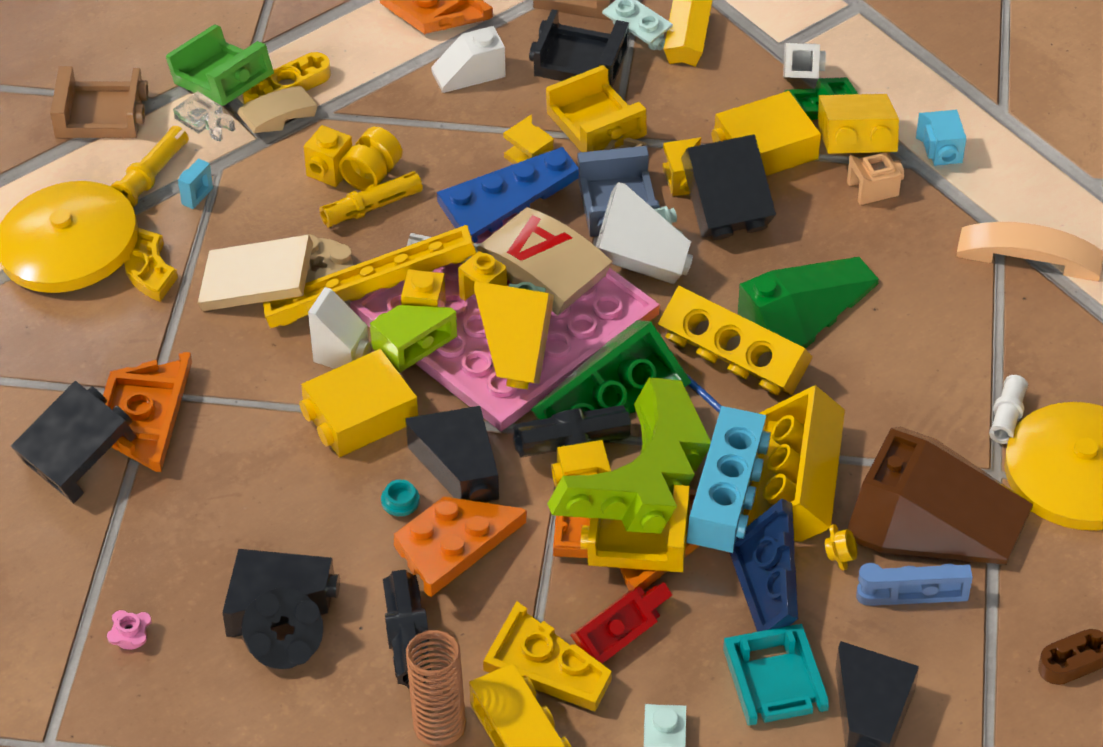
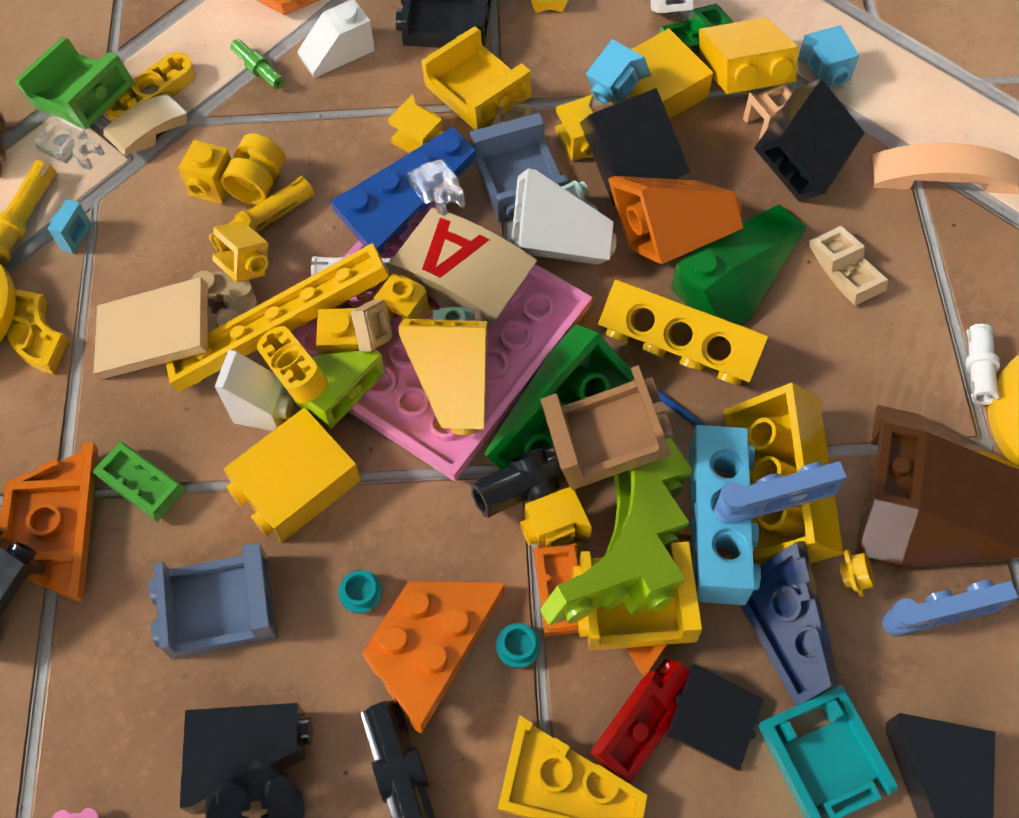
camera: 10 degrees left, 15 degrees up
(224, 389) = (139, 481): none -> bright green plate
(273, 489) = (213, 604): none -> sand blue panel
(355, 223) = (247, 254): none -> yellow window
(376, 307) = (292, 364): none -> yellow beam
(391, 72) = (257, 63): none -> bright green bar
(452, 287) = (371, 325): none -> tan tile
(456, 452) = (414, 523): black slope -> none
(528, 557) = (518, 645): none -> teal plate
(536, 188) = (436, 183): none -> clear plate
(640, 396) = (608, 431): none -> medium nougat panel
(685, 631) = (715, 717): none -> black piece
(724, 118) = (616, 73): none -> medium azure window
(747, 245) = (673, 215): none -> orange slope
(773, 456) = (778, 492): none -> medium blue plate
(896, 202) = (809, 140): none -> black brick
(908, 315) = (845, 264): none -> tan slope

